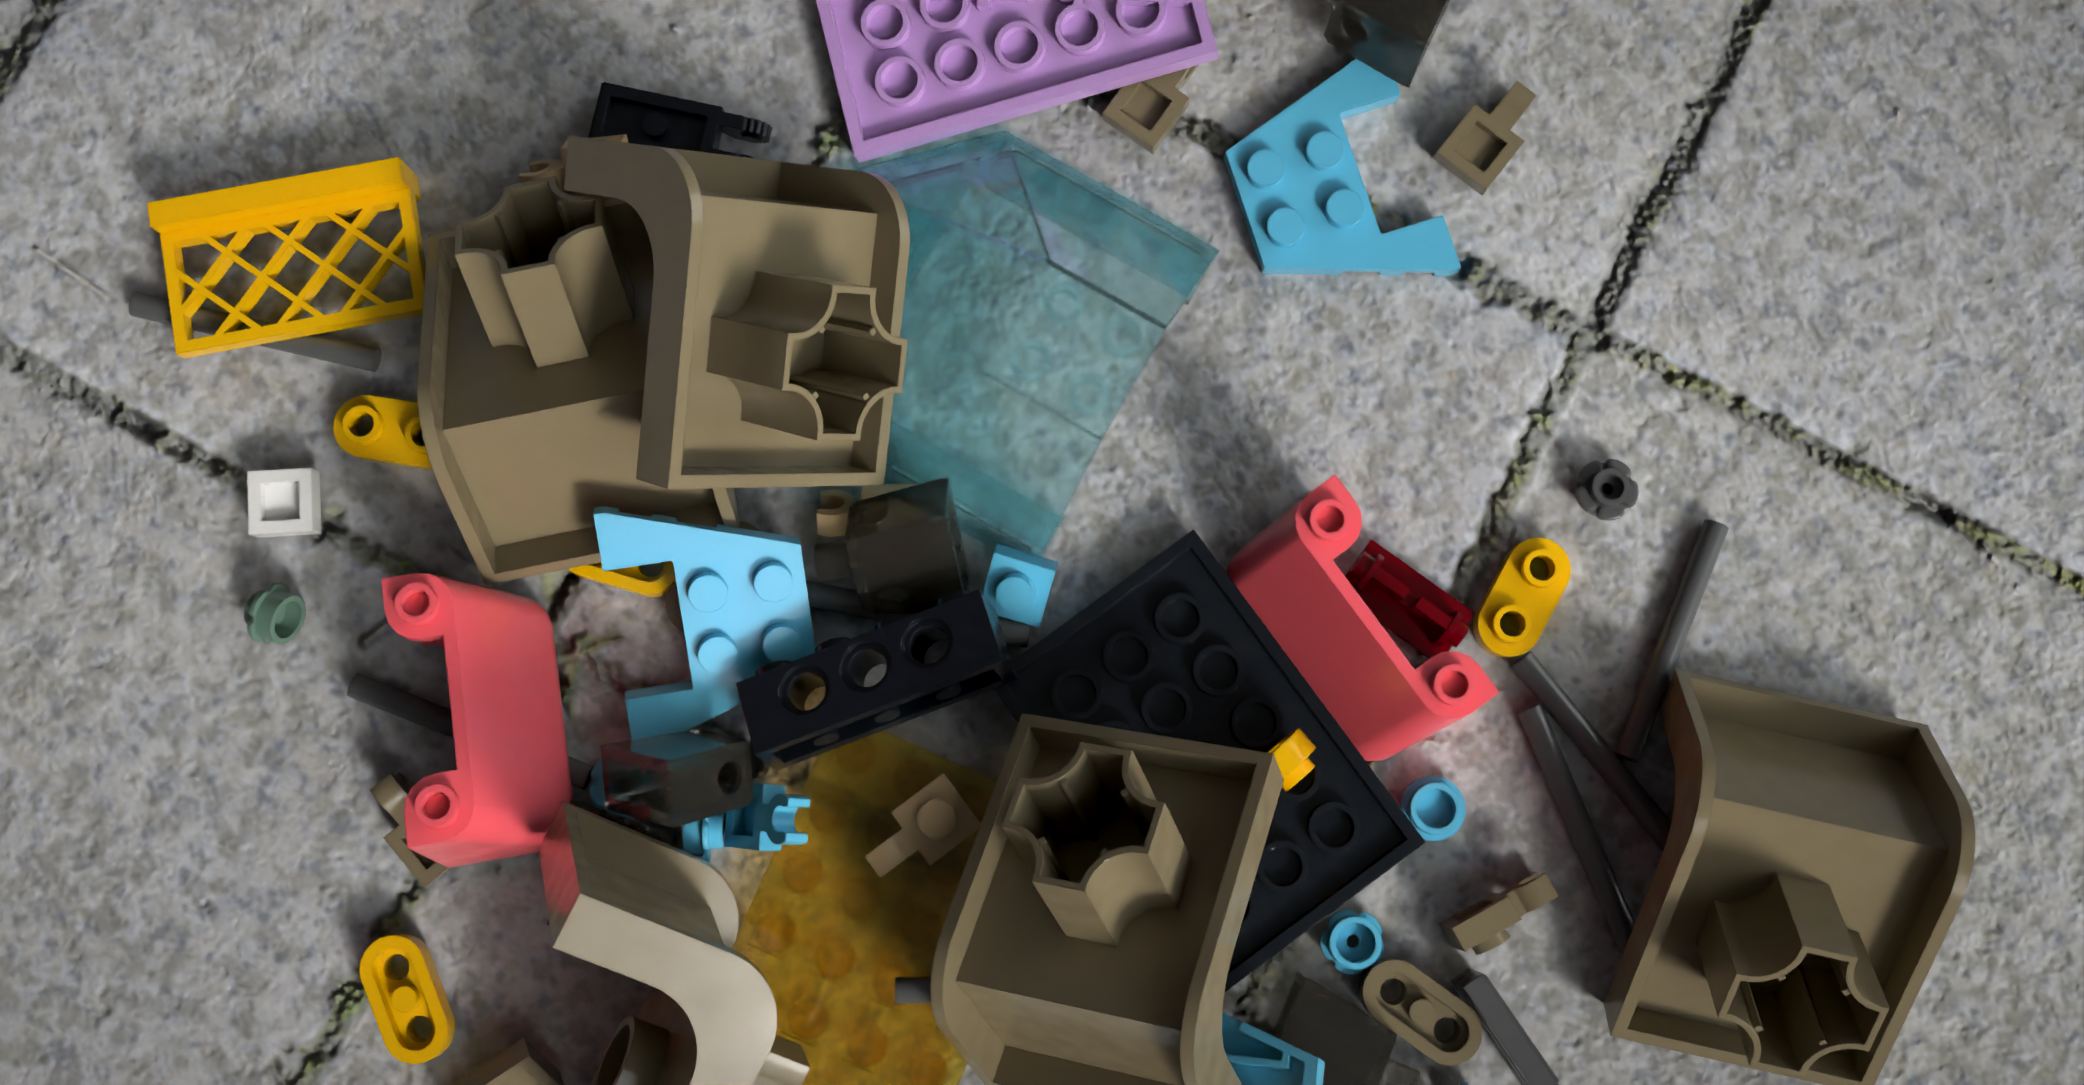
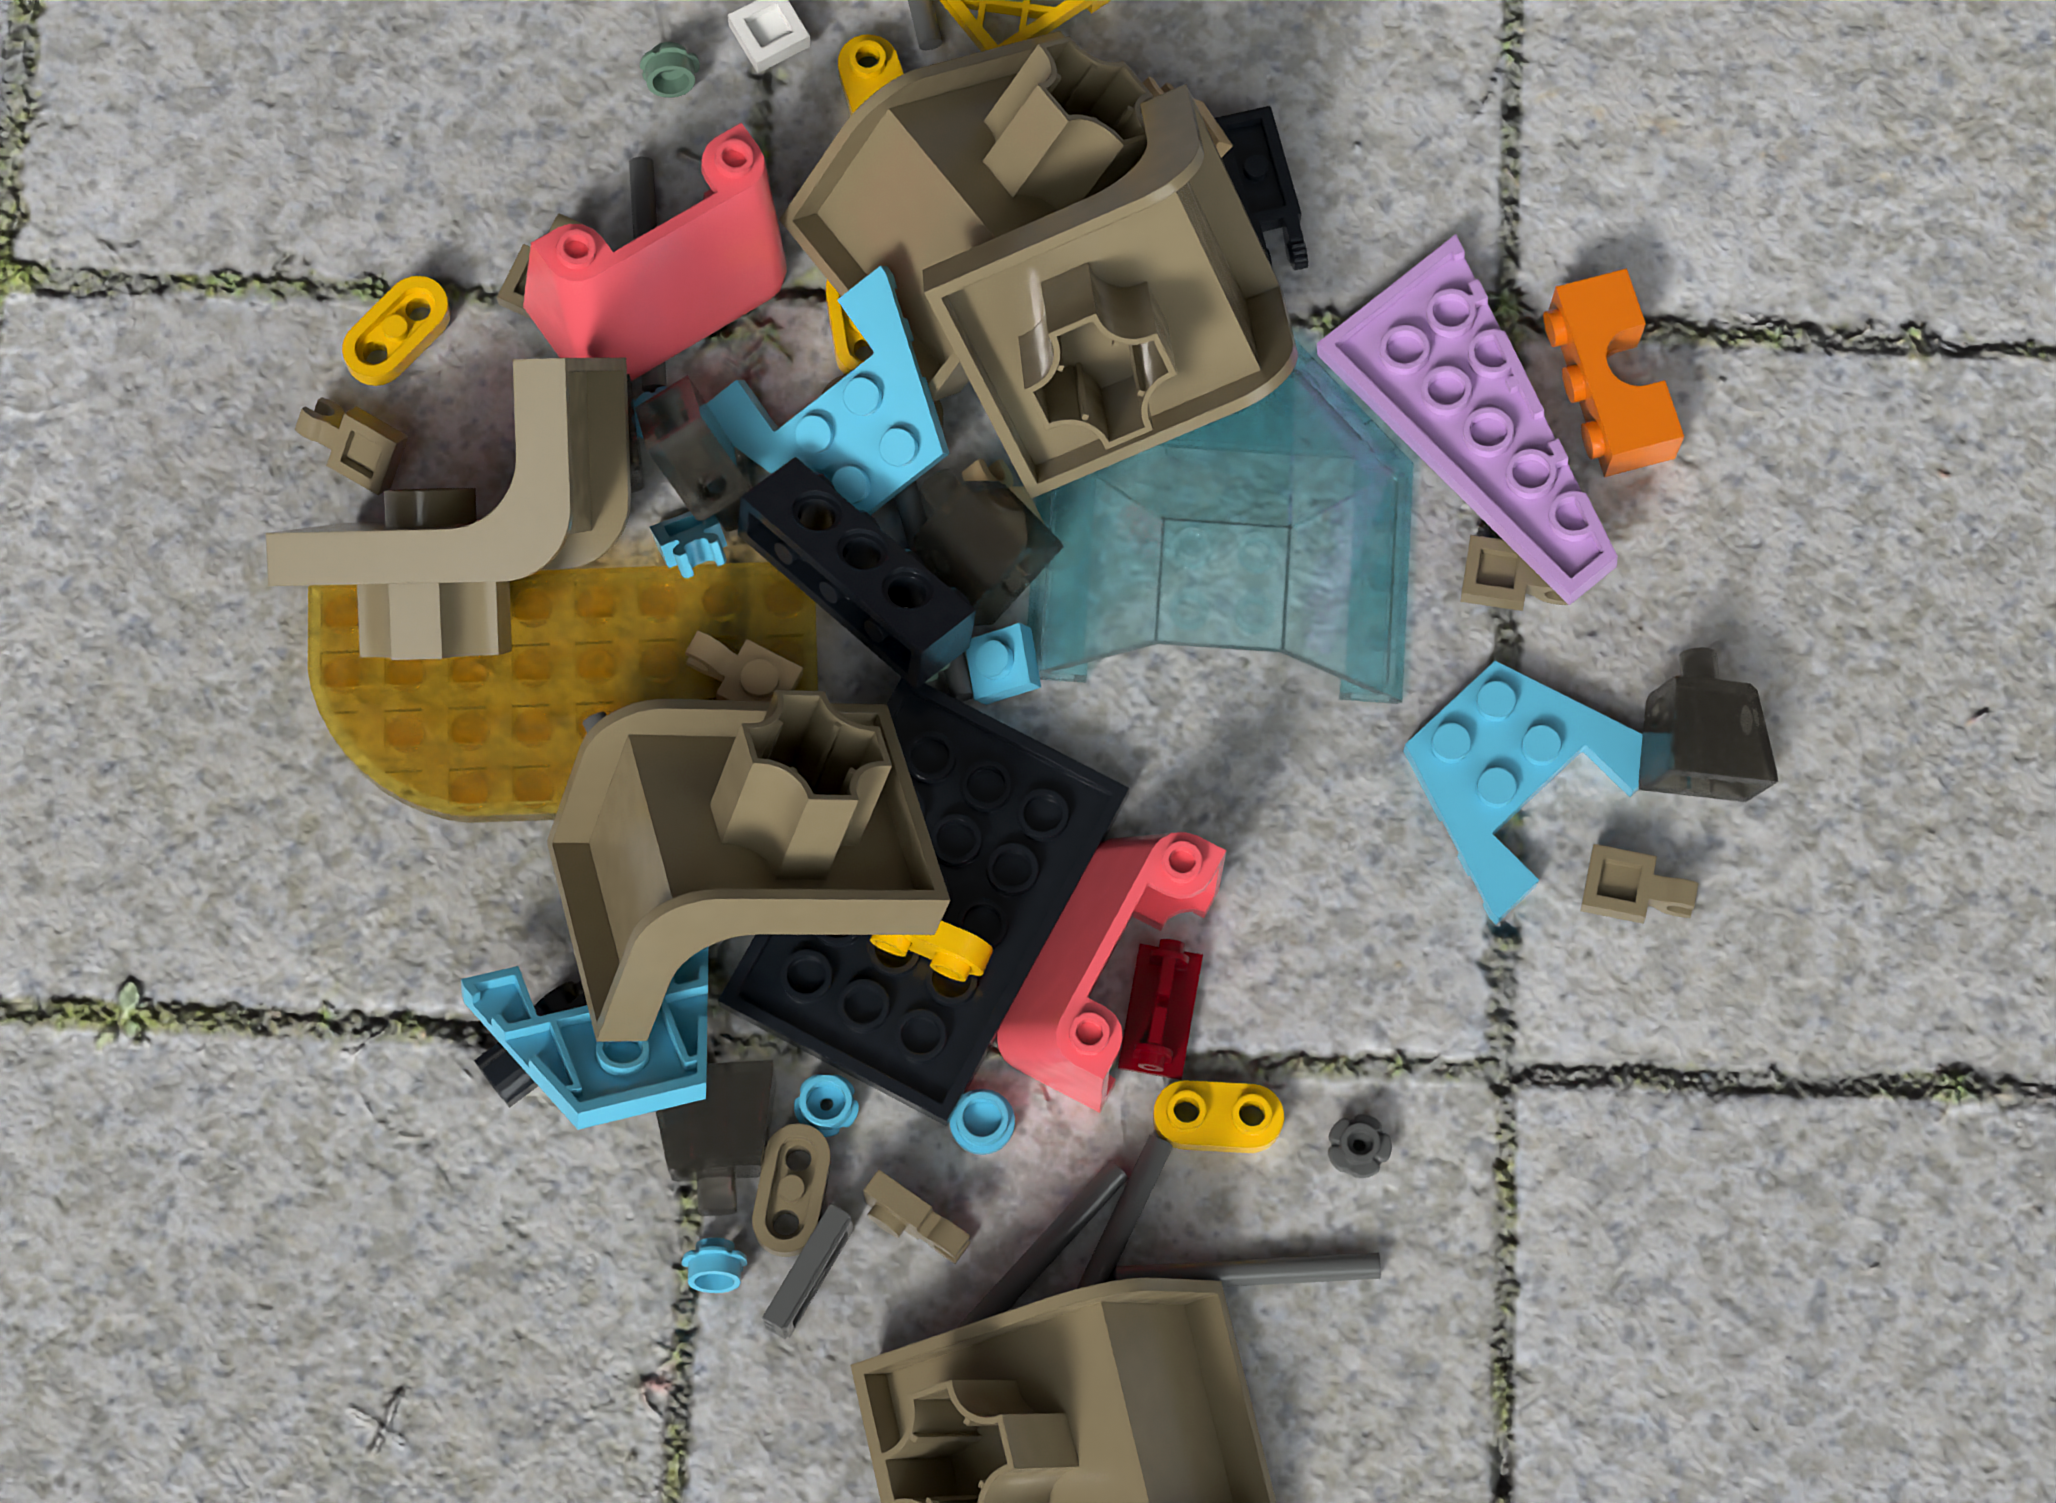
camera: 65 degrees right, 10 degrees down
(703, 836) = (654, 501): medium azure plate -> none

